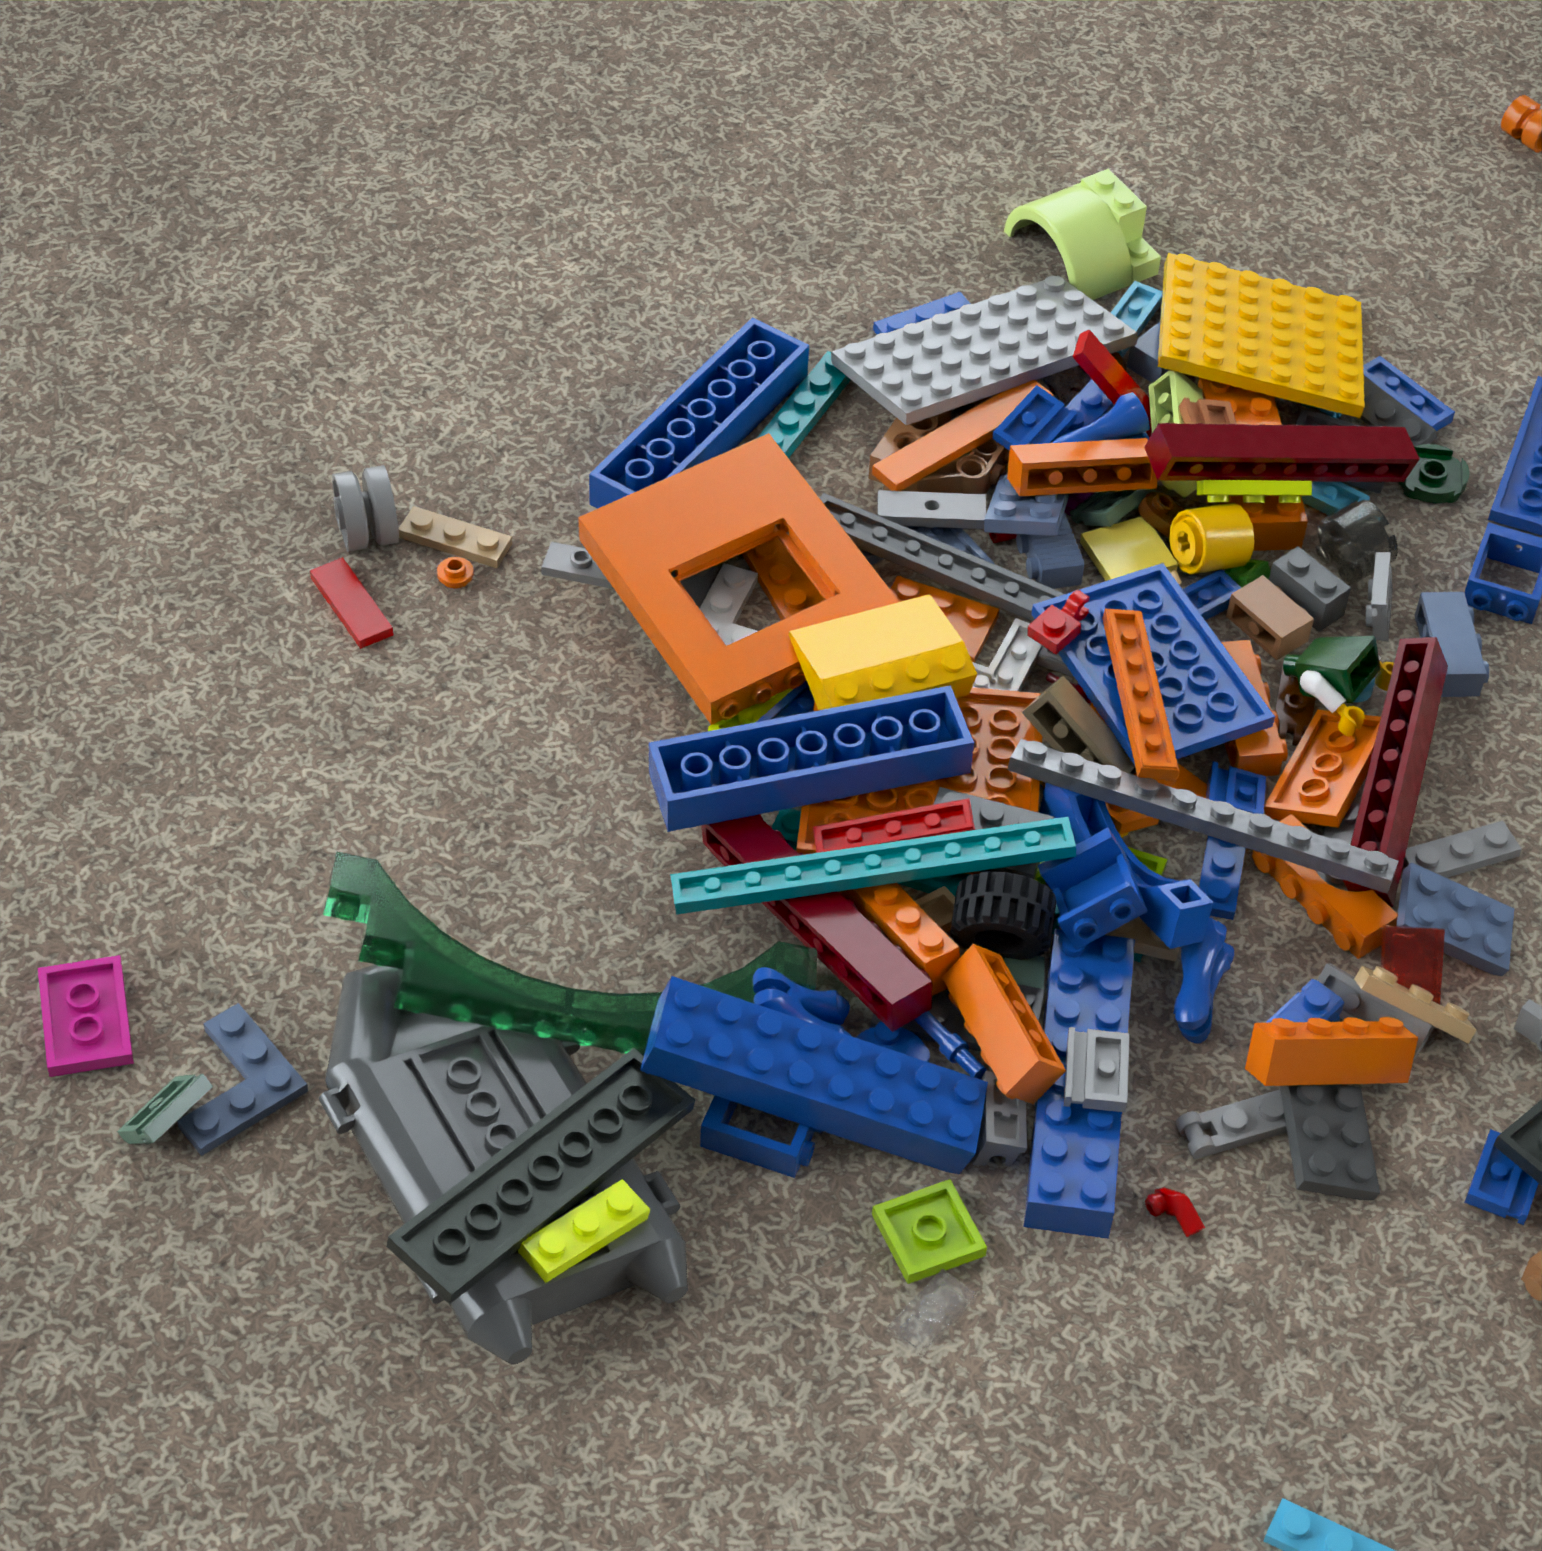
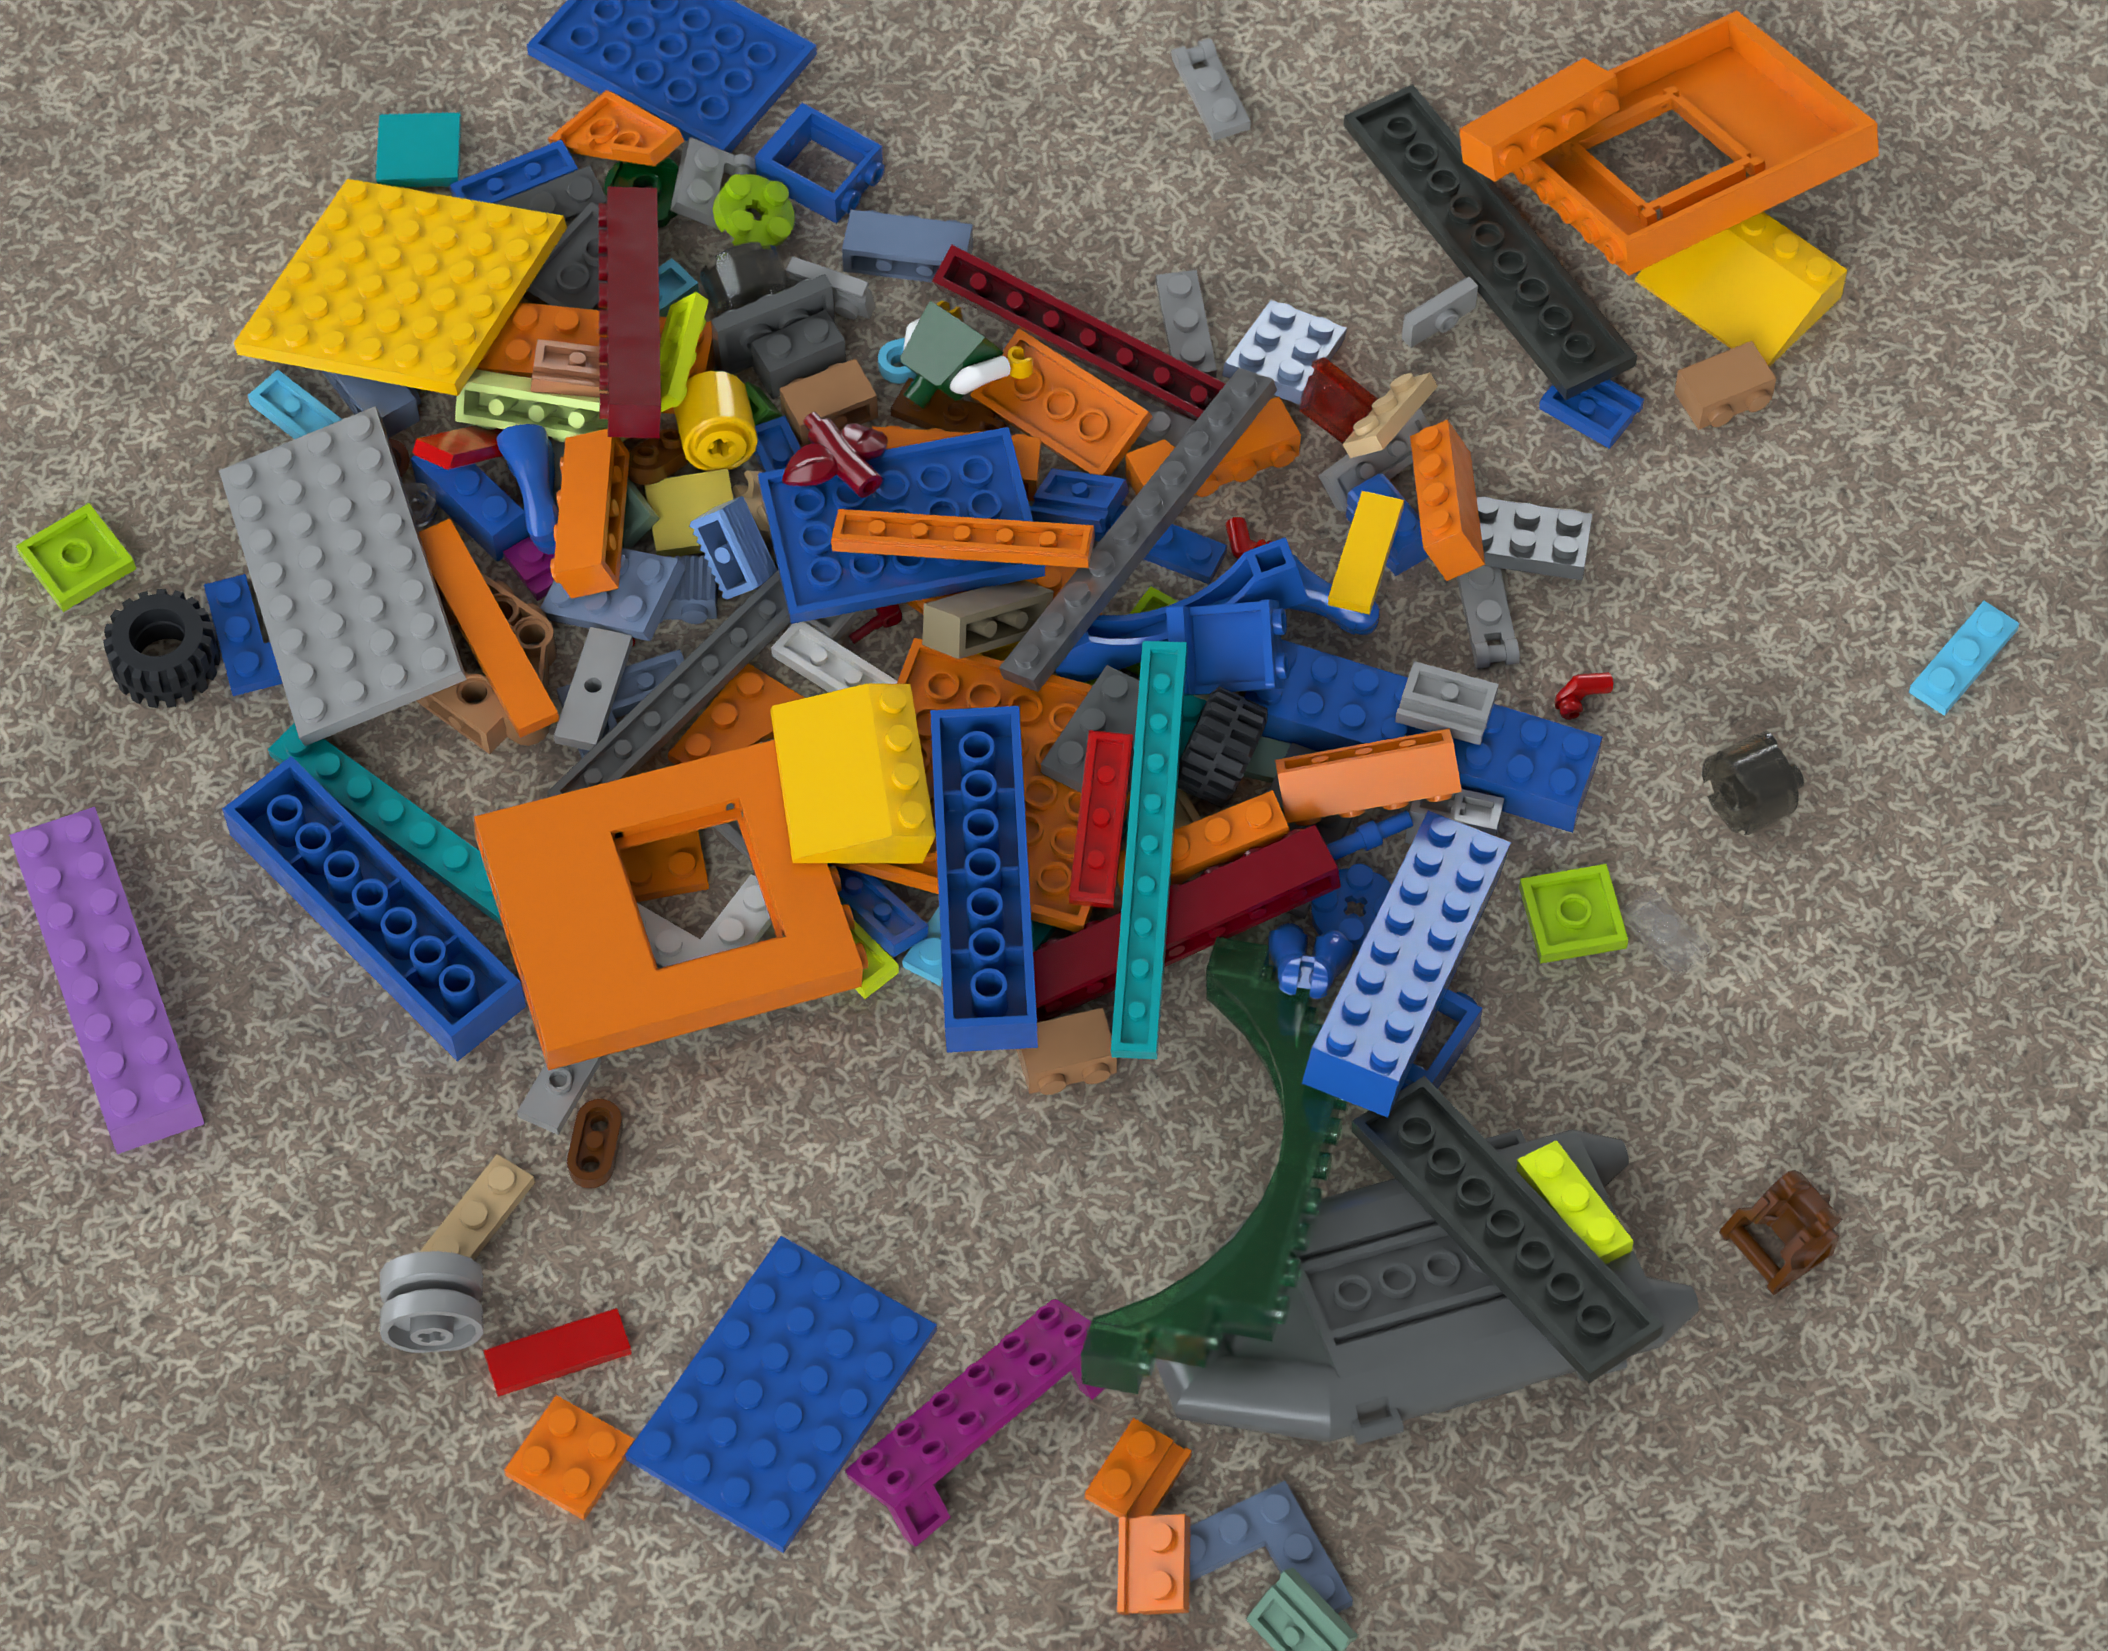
camera: 75 degrees left, 10 degrees up
(212, 998) = (1154, 1564): none -> orange plate
(263, 624) = (569, 1457): none -> orange plate
(300, 983) = (1138, 1472): none -> orange plate
(314, 842) = (966, 1414): none -> magenta bracket
(339, 742) = (781, 1393): none -> blue plate
(455, 572) = (538, 1238): orange plate -> none
(532, 590) = (594, 1145): none -> reddish brown plate
(603, 299) = (106, 980): none -> medium lavender brick
(637, 1457) = (1798, 1218): none -> reddish brown piece
(675, 853) = (1069, 1052): none -> medium nougat brick
(891, 273) = (166, 675): none -> black tyre
(959, 222) = (76, 557): none -> lime plate
(1035, 420) = (502, 547): blue plate -> none
(1059, 627) = (836, 596): red plate -> none
(1093, 561) = (733, 547): none -> medium blue brick
(1096, 233) = (148, 412): yellowish green piece -> none
(1106, 1353) = (1752, 783): none -> clear smoke brick
(1196, 602) = (838, 454): none -> dark red plant
(1240, 928) = (1240, 538): none -> red arm
(1243, 991) = (1365, 552): none -> yellow tile
(1327, 548) = (738, 328): none -> dark grey plate
(1407, 335) = (418, 149): none -> teal tile
(1447, 521) = (764, 196): none -> lime plate
(1452, 500) = (701, 178): none -> light grey plate
(1477, 441) = (619, 132): none -> orange wing

